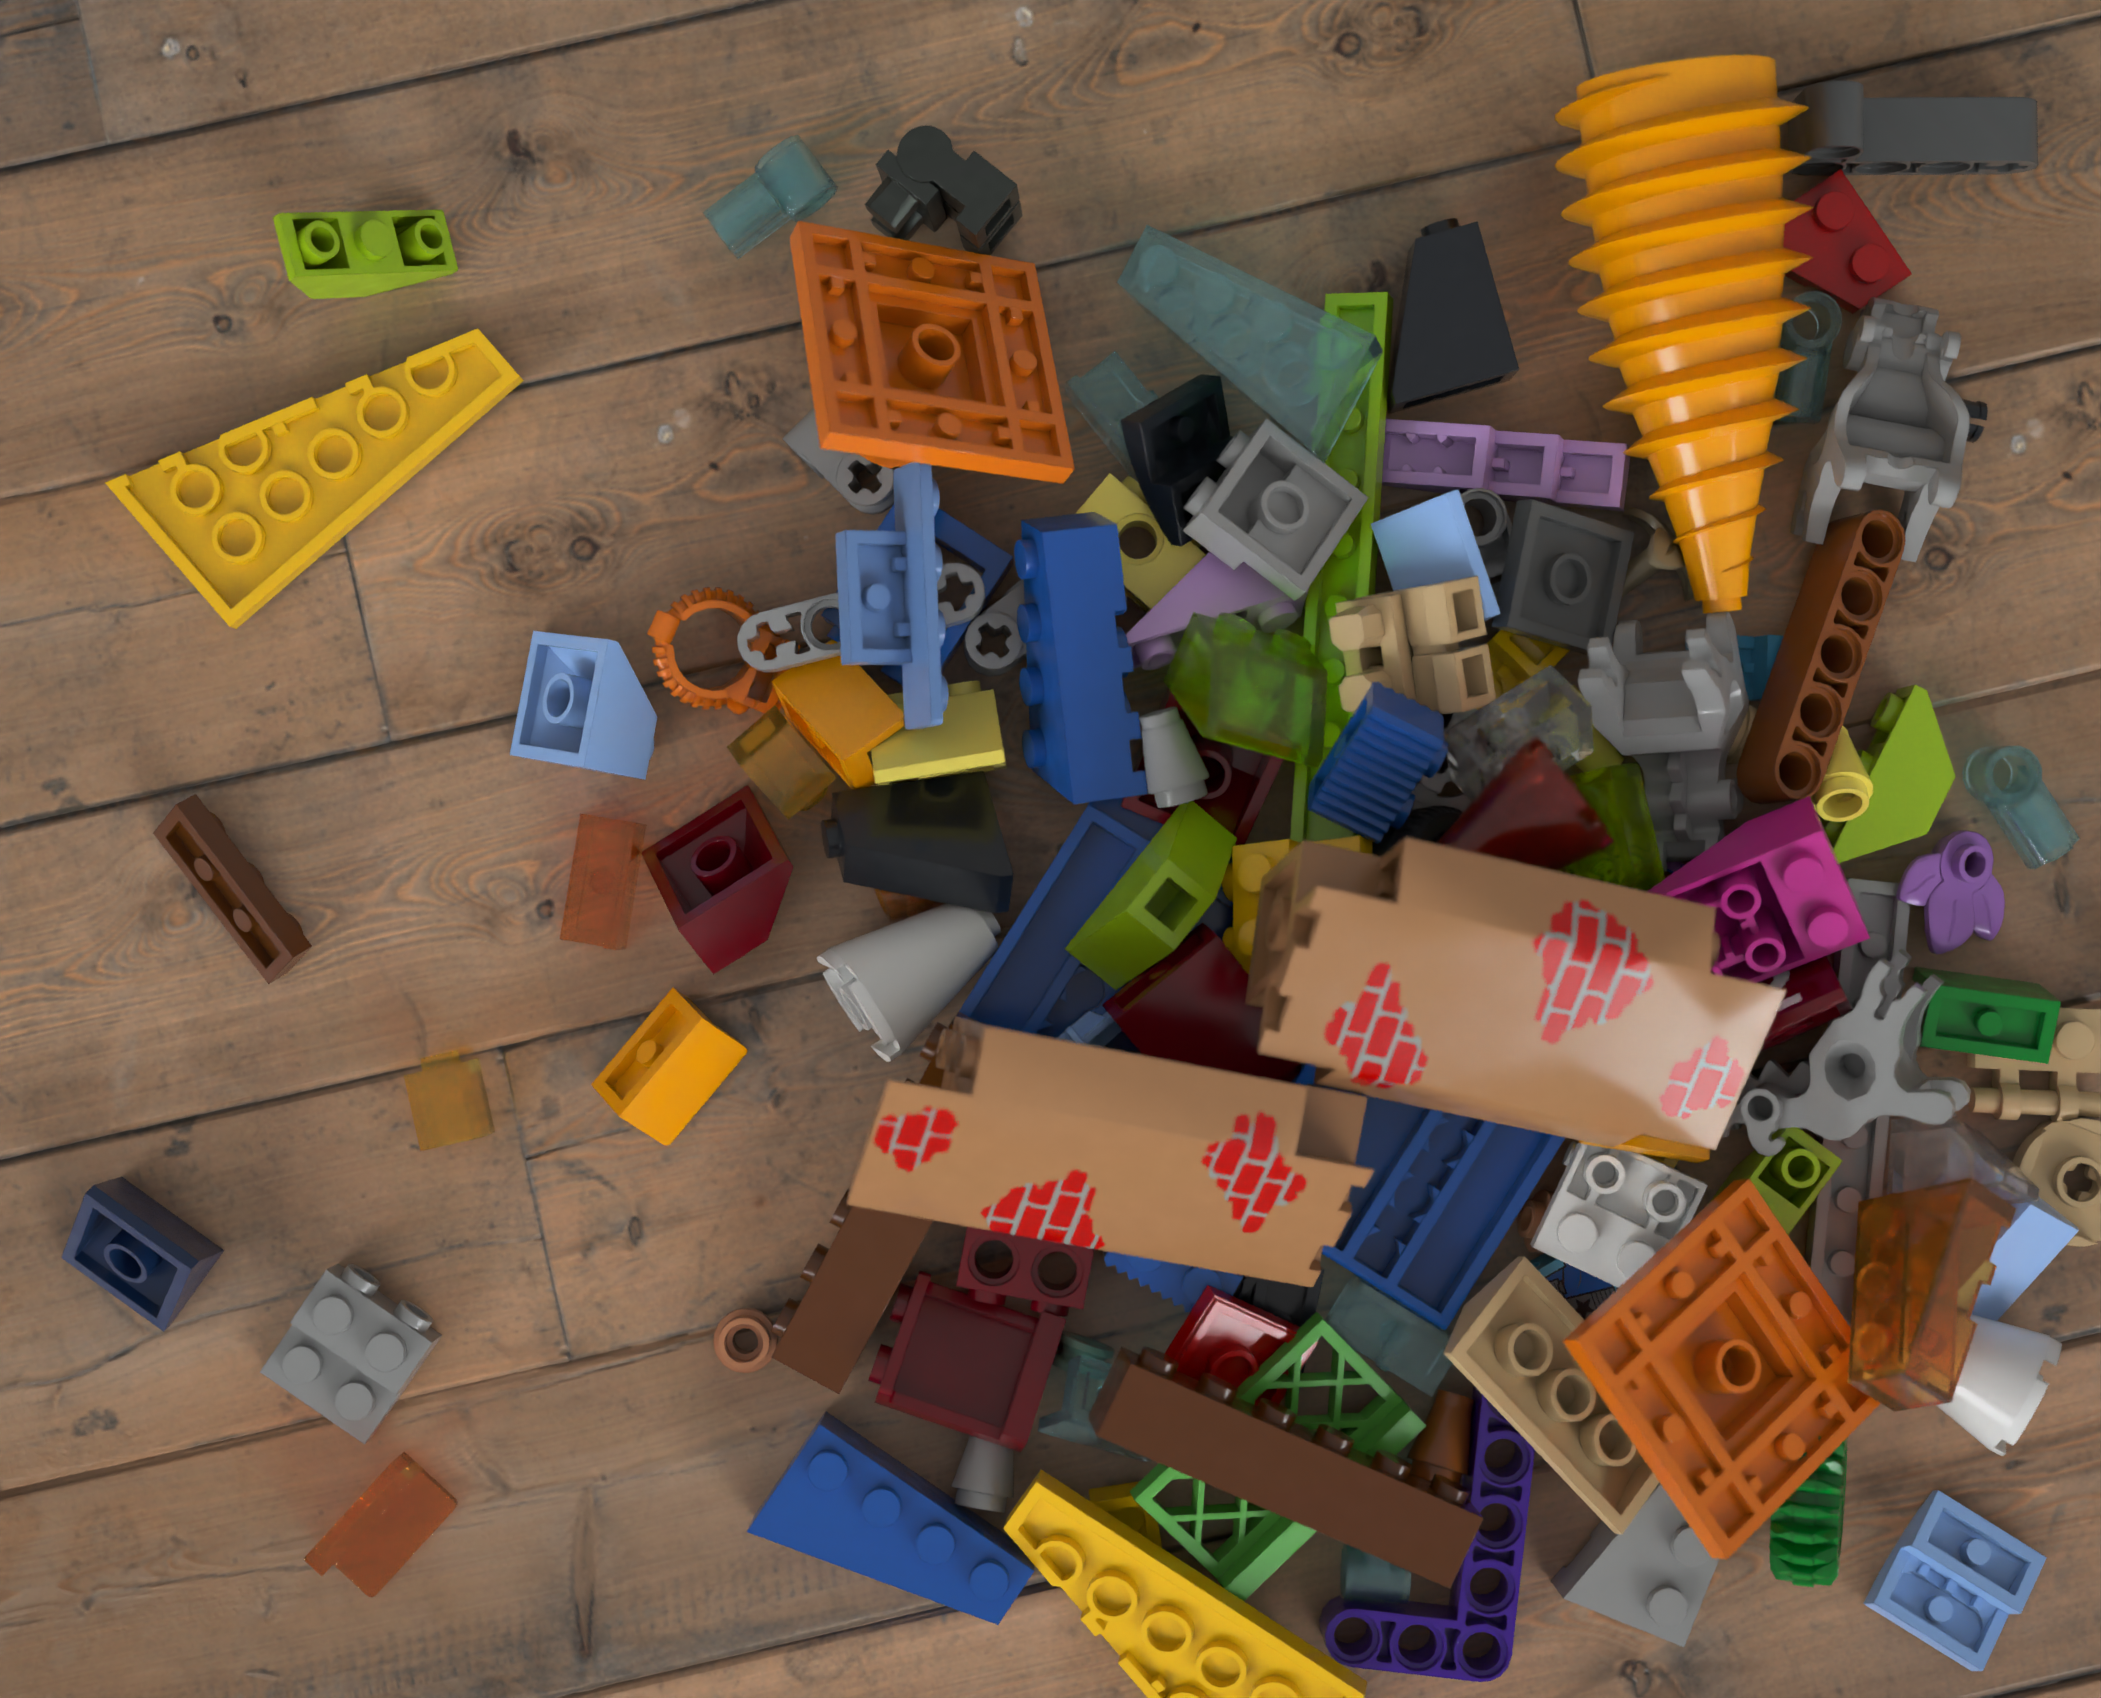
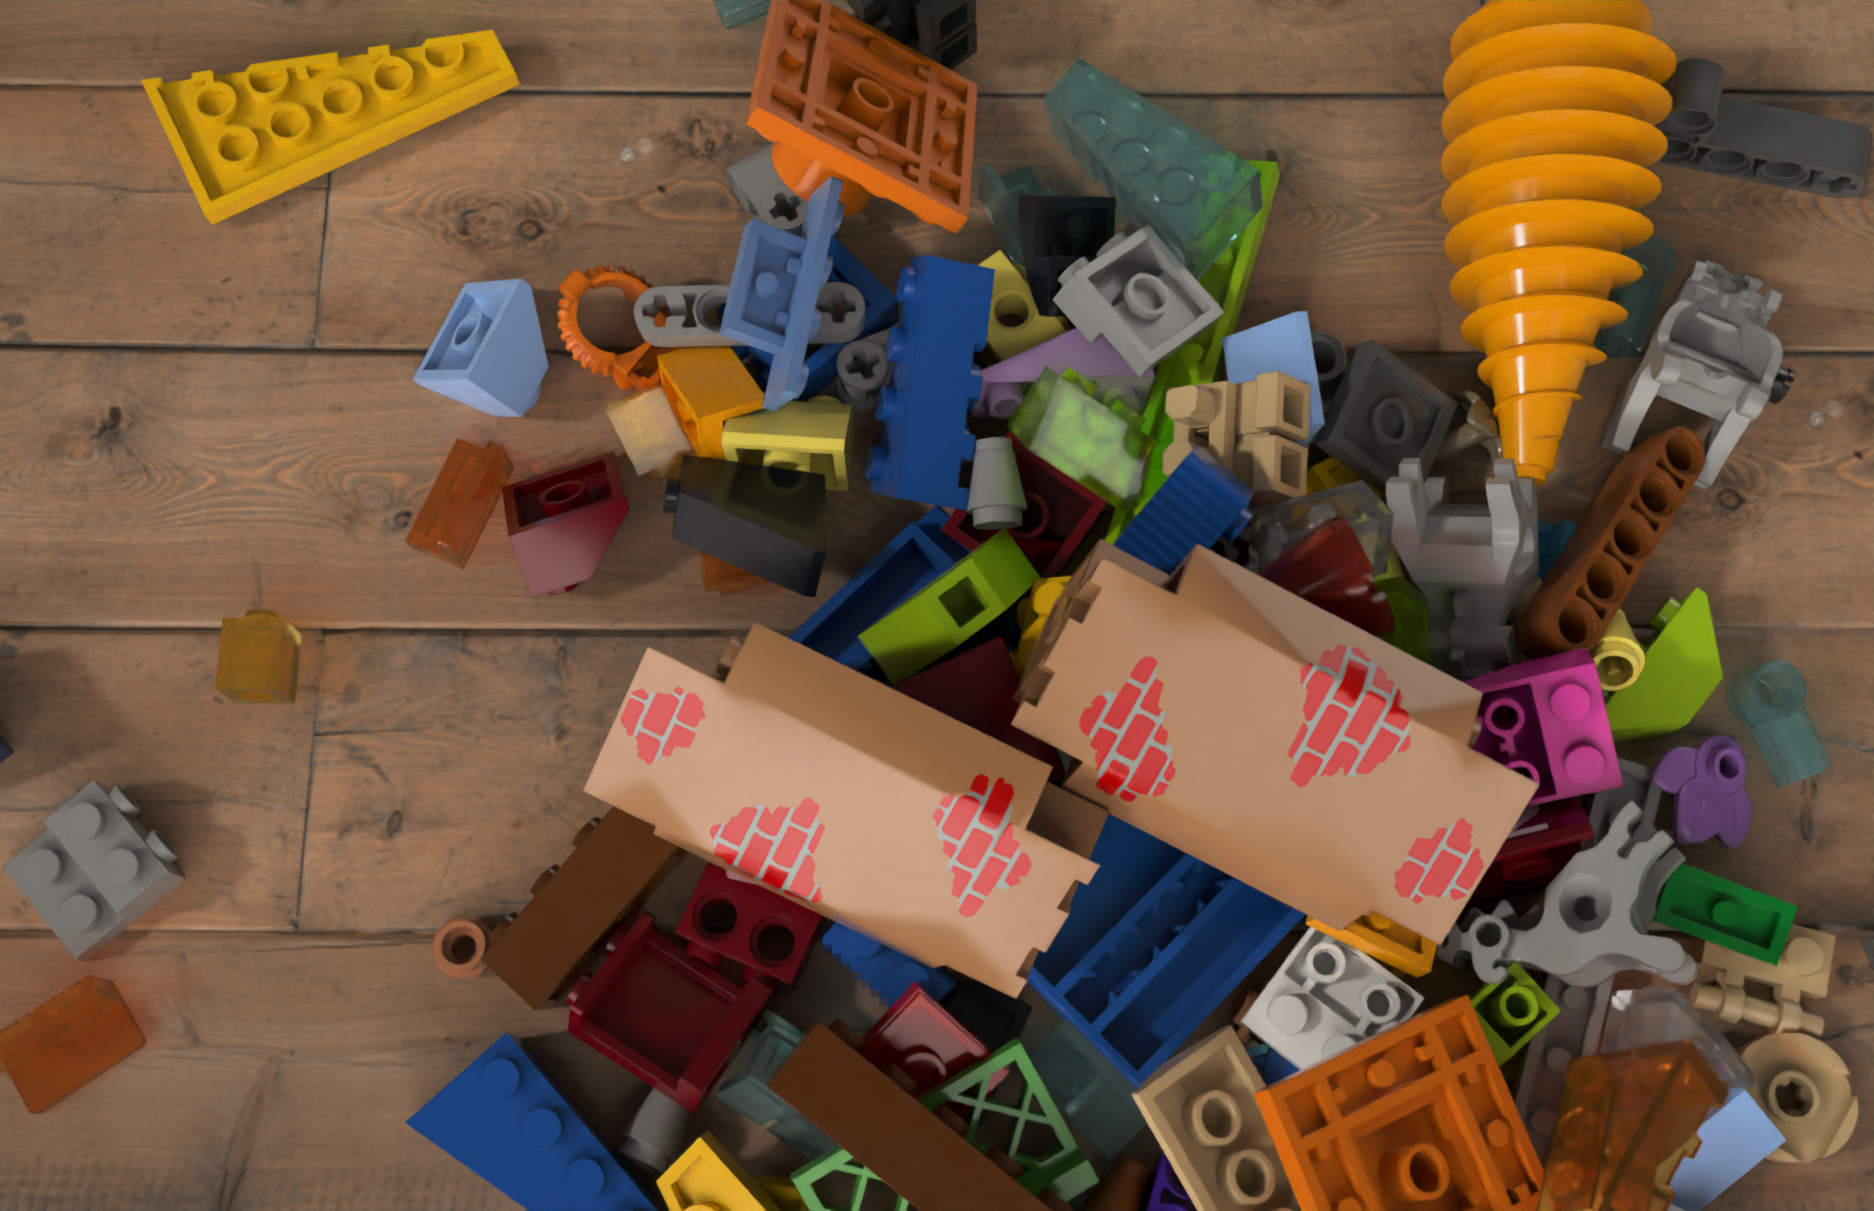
camera: 15 degrees right, 15 degrees down
(232, 888) = (131, 431): reddish brown plate -> none
(668, 1068) = (469, 680): light orange panel -> none
(909, 971) = (700, 621): white cone -> none
(1448, 321) = (1327, 204): black slope -> none
(1509, 463) = (1423, 345): lavender slope -> none
(1847, 244) = (1689, 218): red wing -> none

